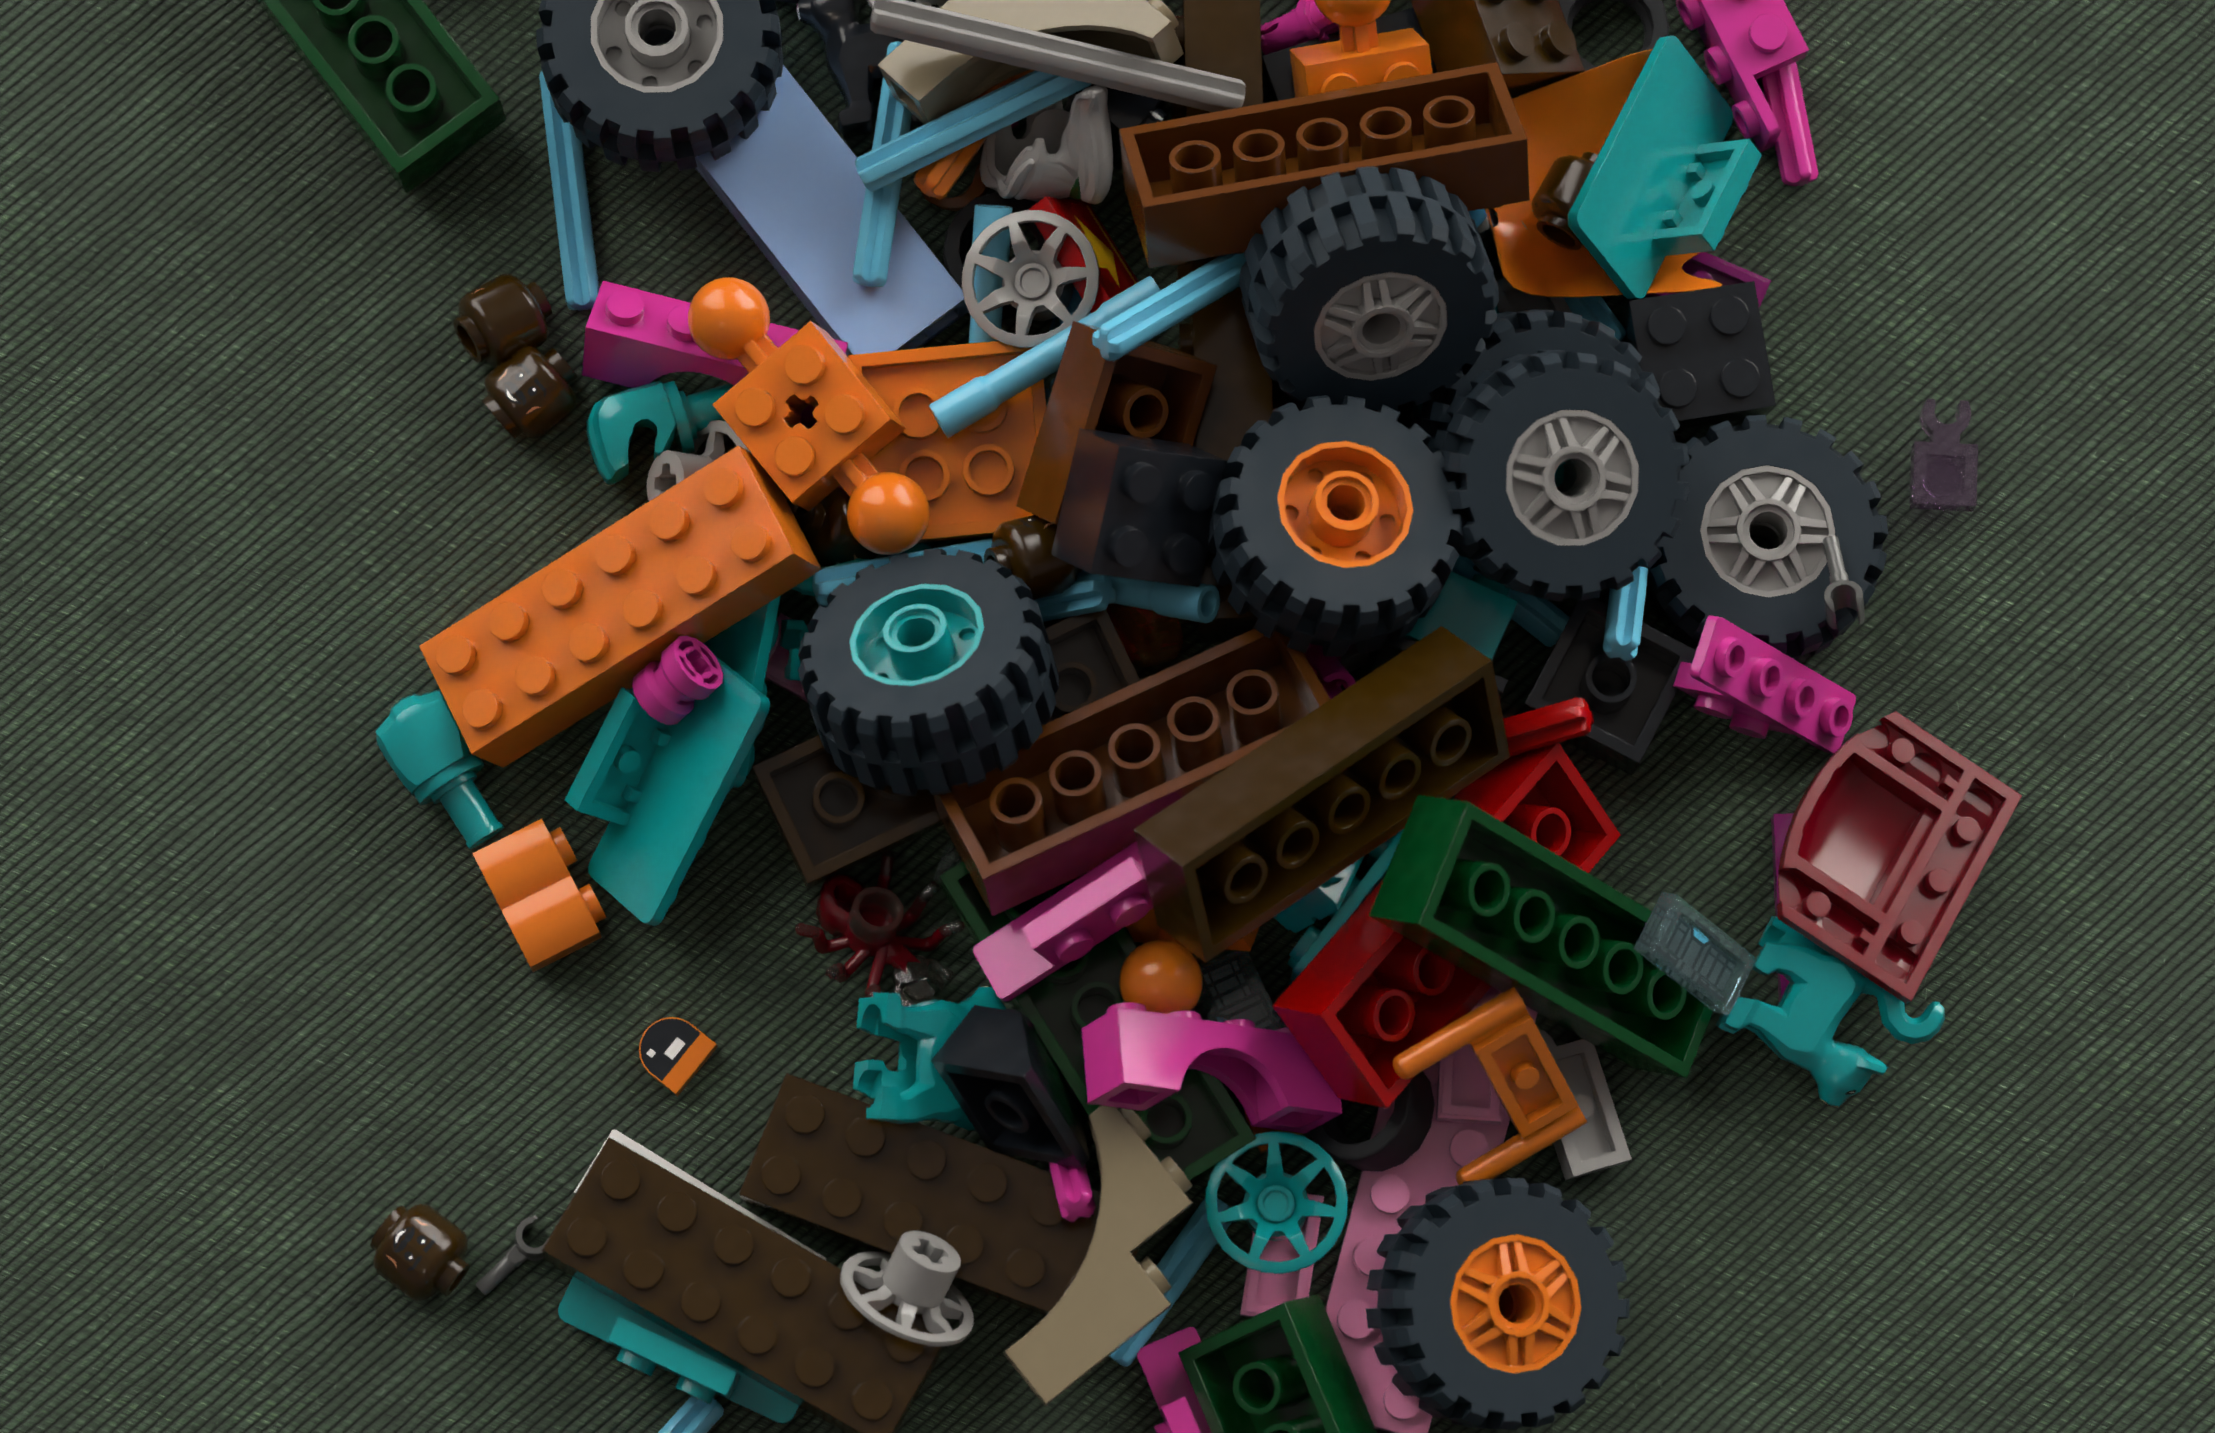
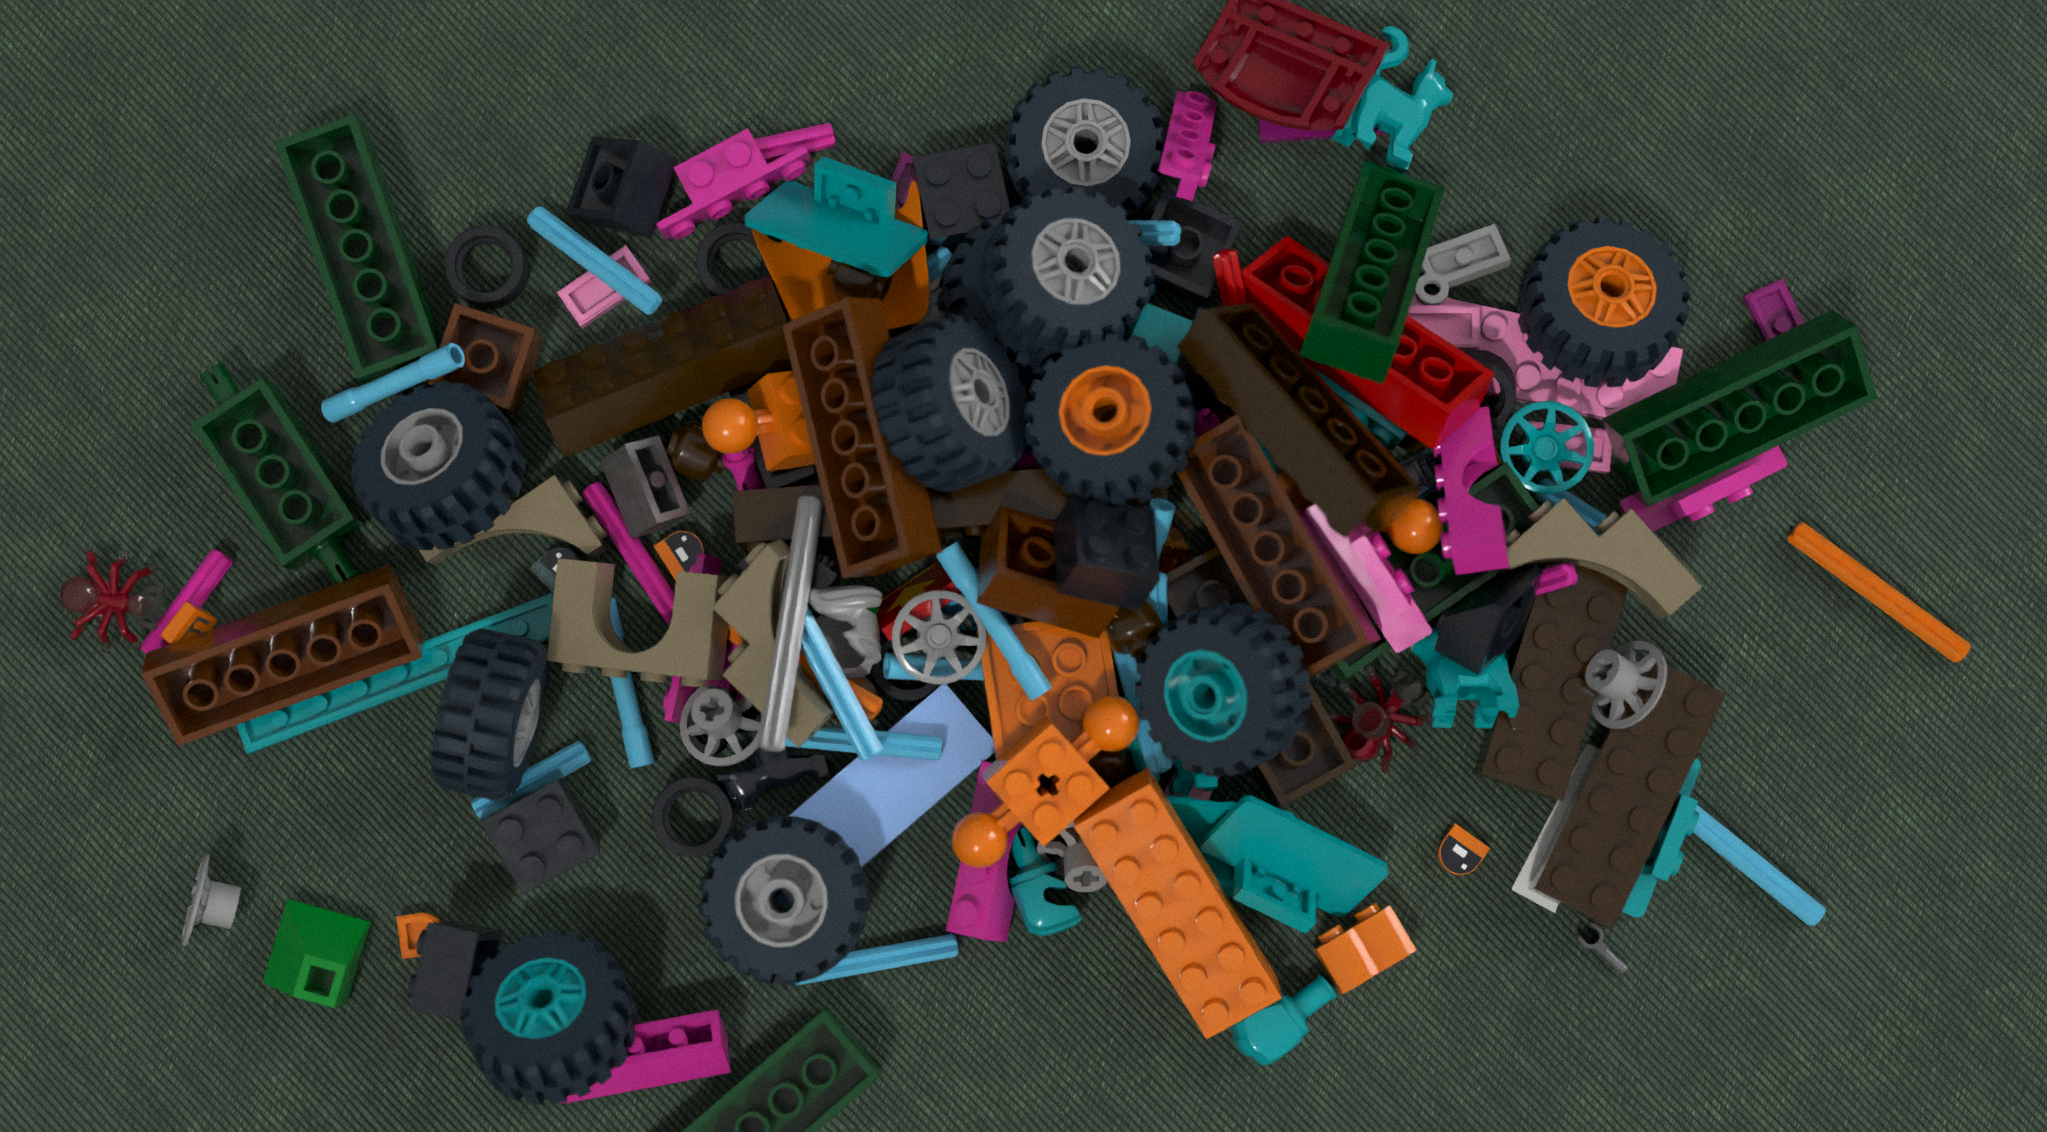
camera: 90 degrees left, 5 degrees up
(420, 1252) = (1606, 1011): dark brown head -> none
(502, 319) = (971, 998): dark brown head -> none
(530, 392) = (1020, 976): dark brown head -> none
(671, 686) = (1227, 860): dark pink wheel -> none
(1168, 306) = (970, 537): medium azure axle -> none
(1518, 1070) = (1458, 290): orange plate -> none
(1695, 953) = (1370, 181): clear light blue tile -> none
(1841, 590) = (1126, 91): dark grey hand -> none
(1943, 469) = (1026, 36): clear purple plate -> none

